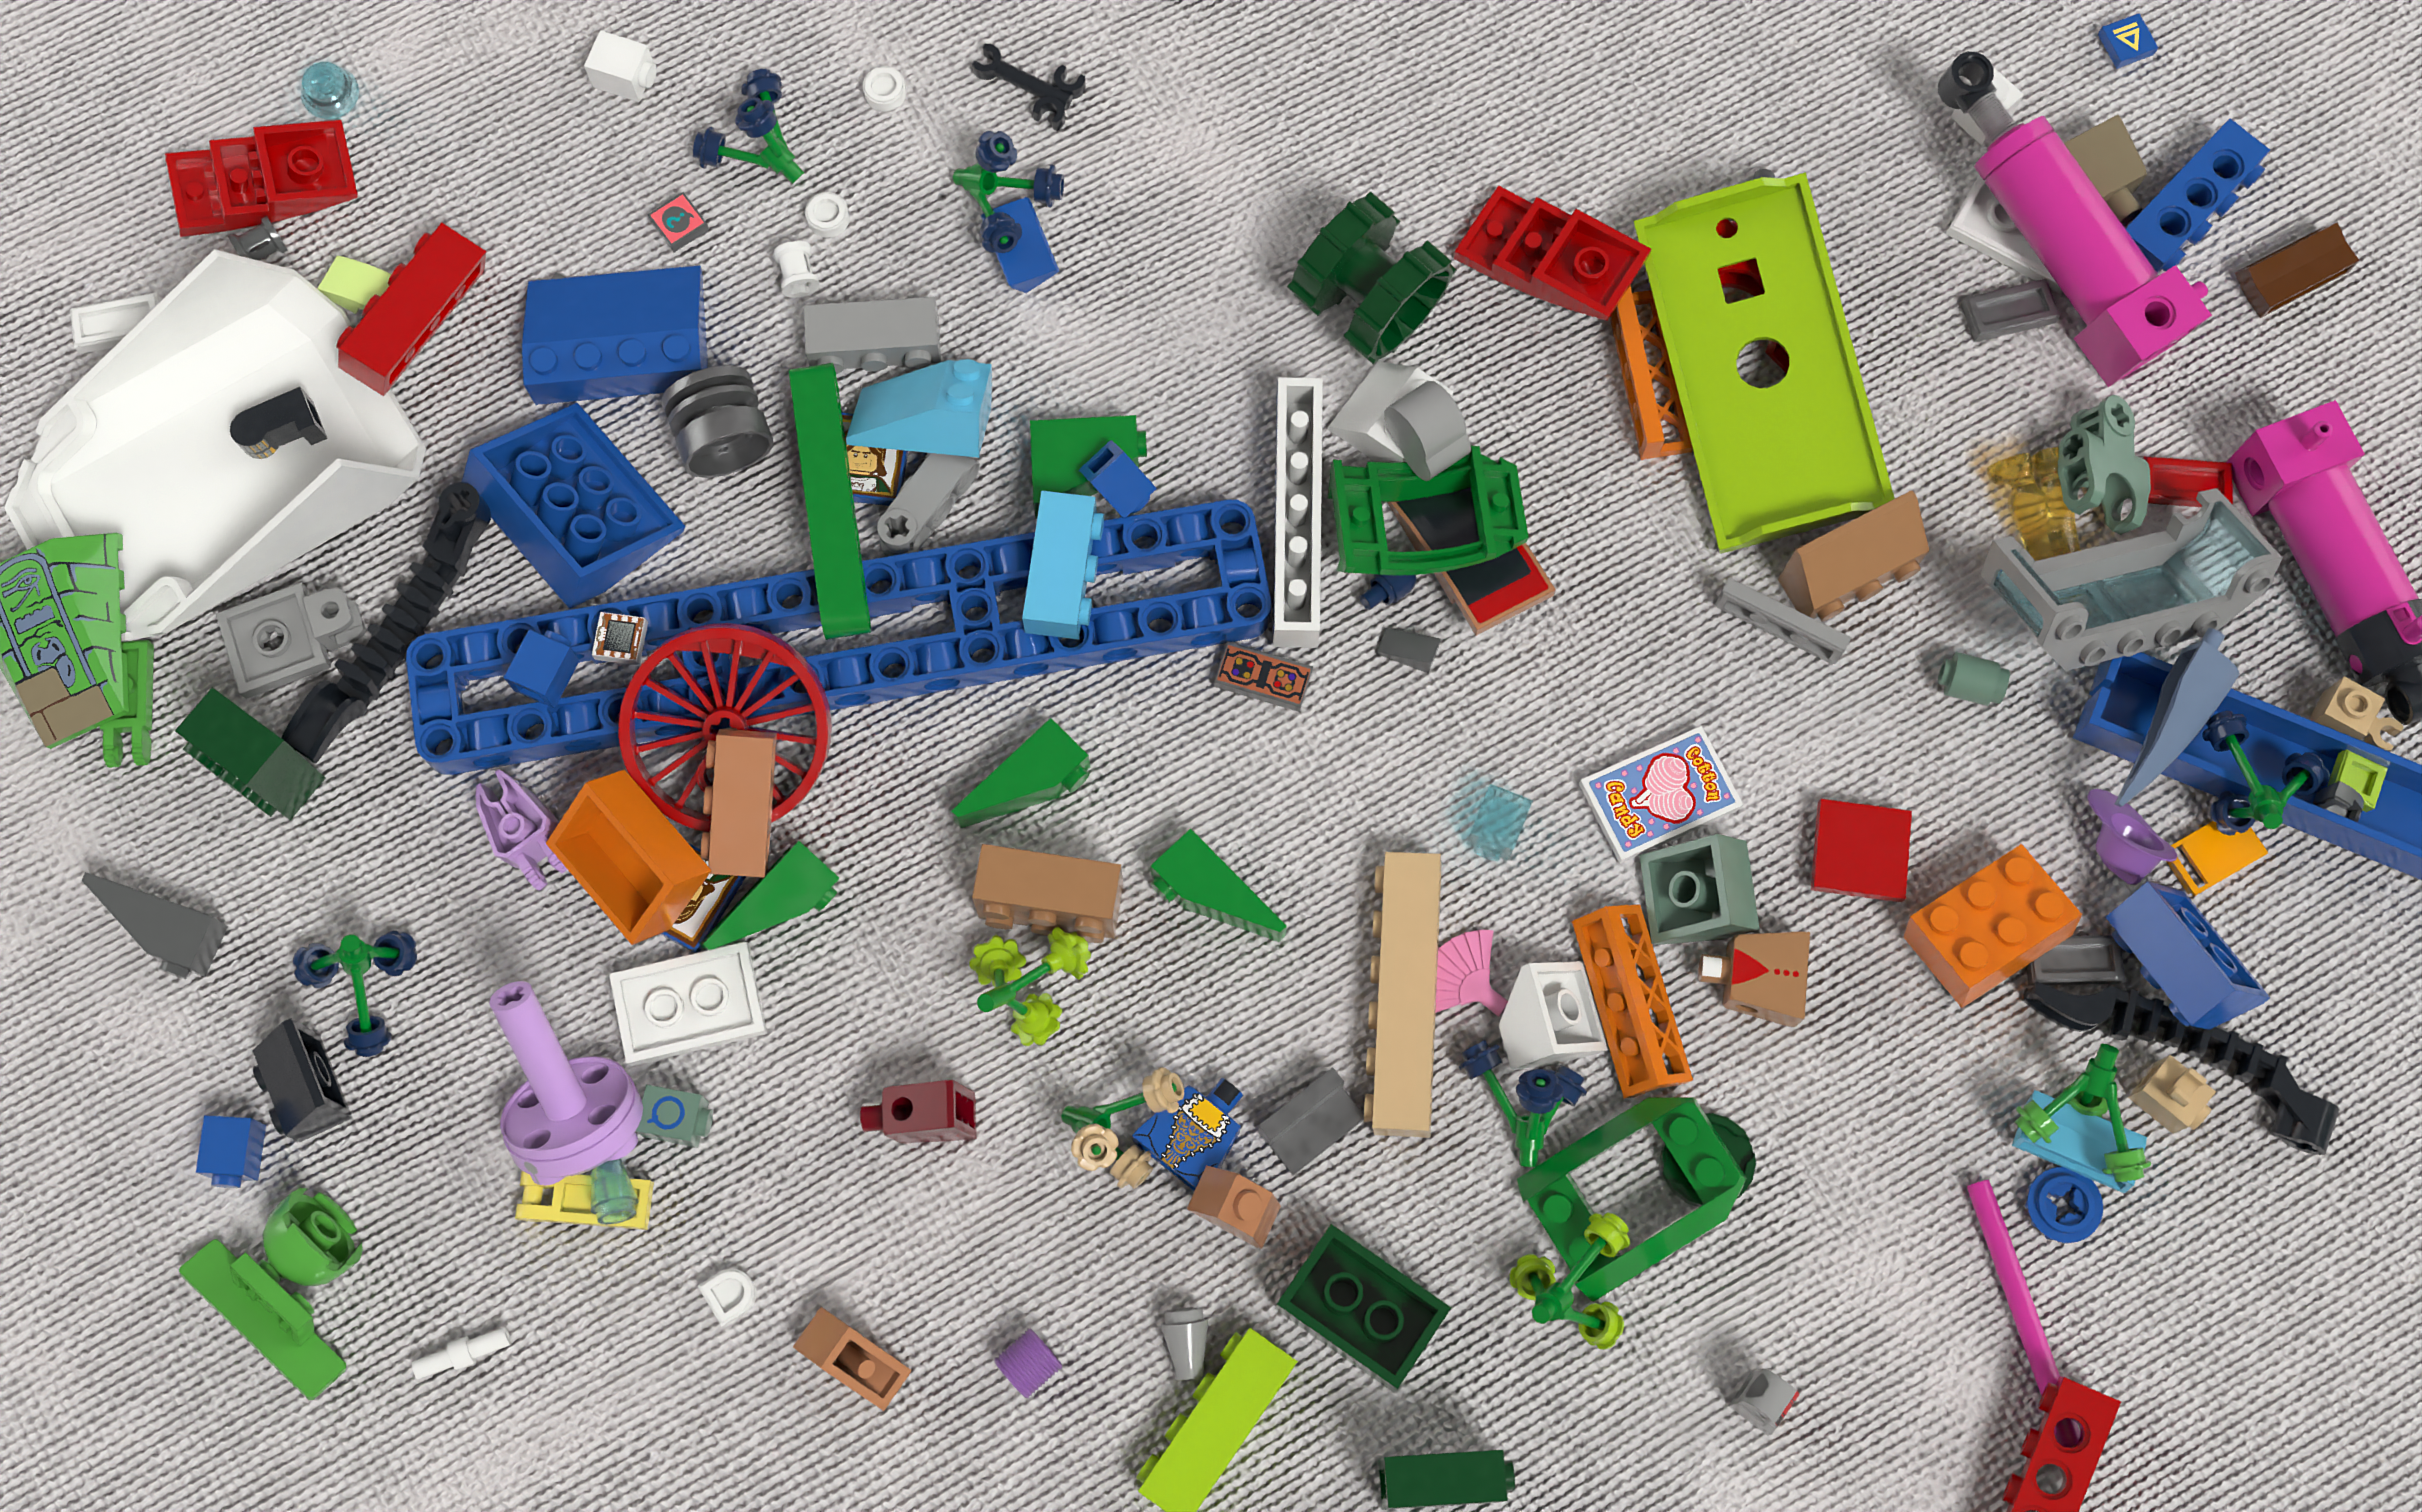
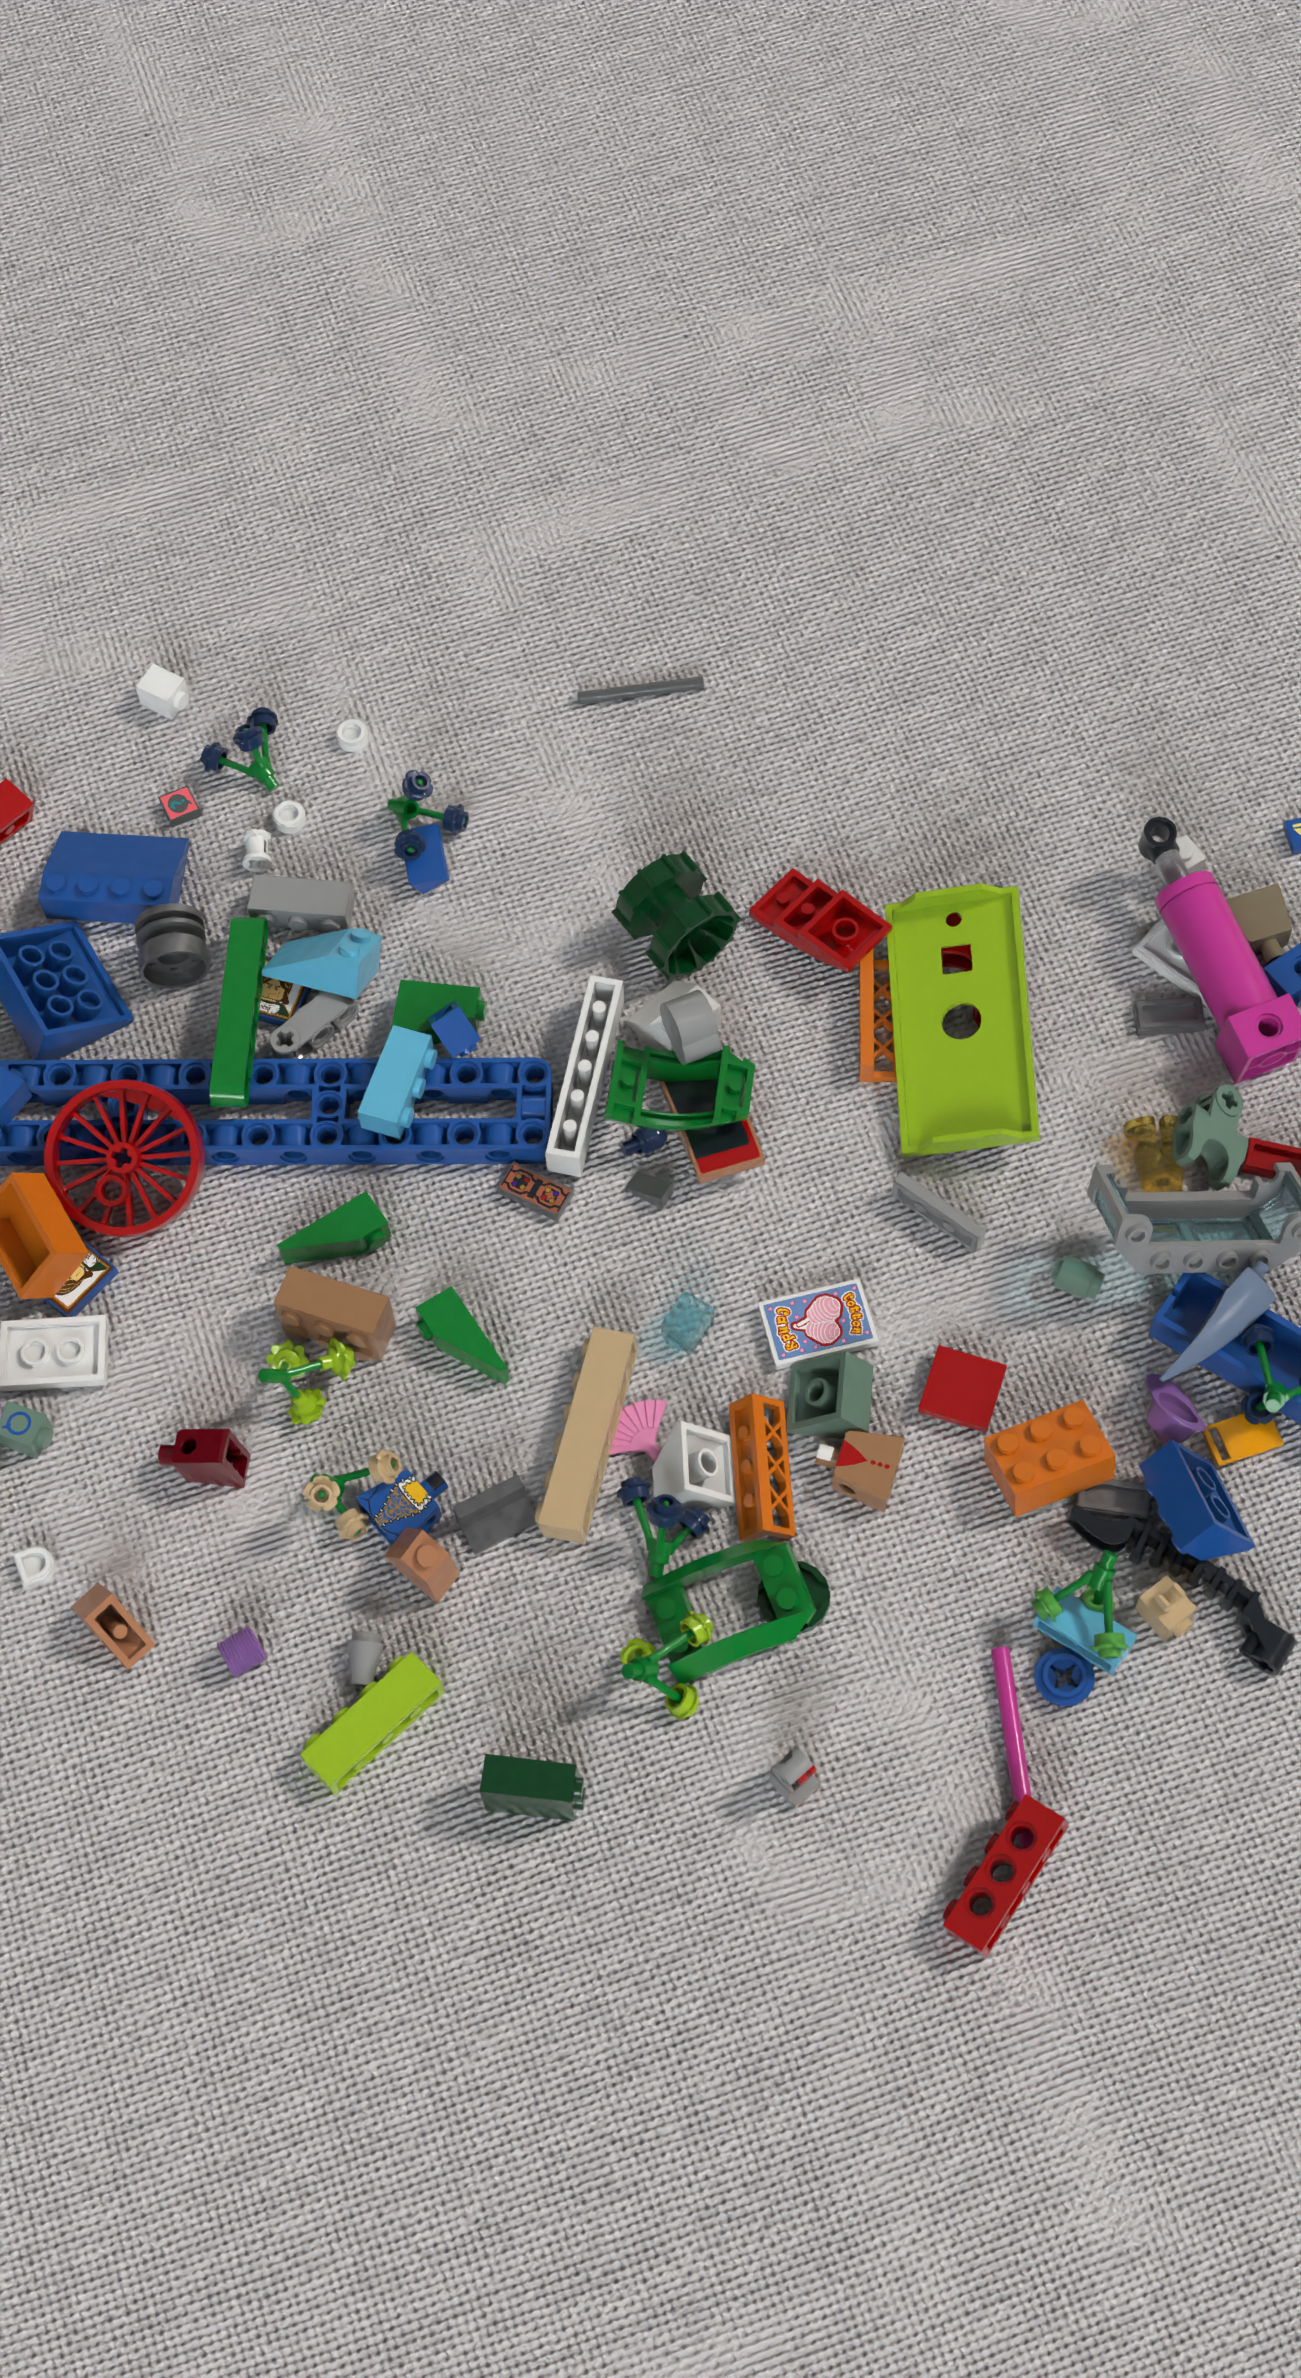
camera: 15 degrees right, 10 degrees down
(620, 638) = (63, 1083): tile -> none
(739, 802) = (121, 1210): nougat brick -> none
(787, 891) = (139, 1285): green slope -> none
(1052, 97) = (473, 759): black bar -> none
(1362, 1308) = (500, 1653): dark green brick -> none
(1856, 559) = (1003, 1172): medium nougat slope -> none

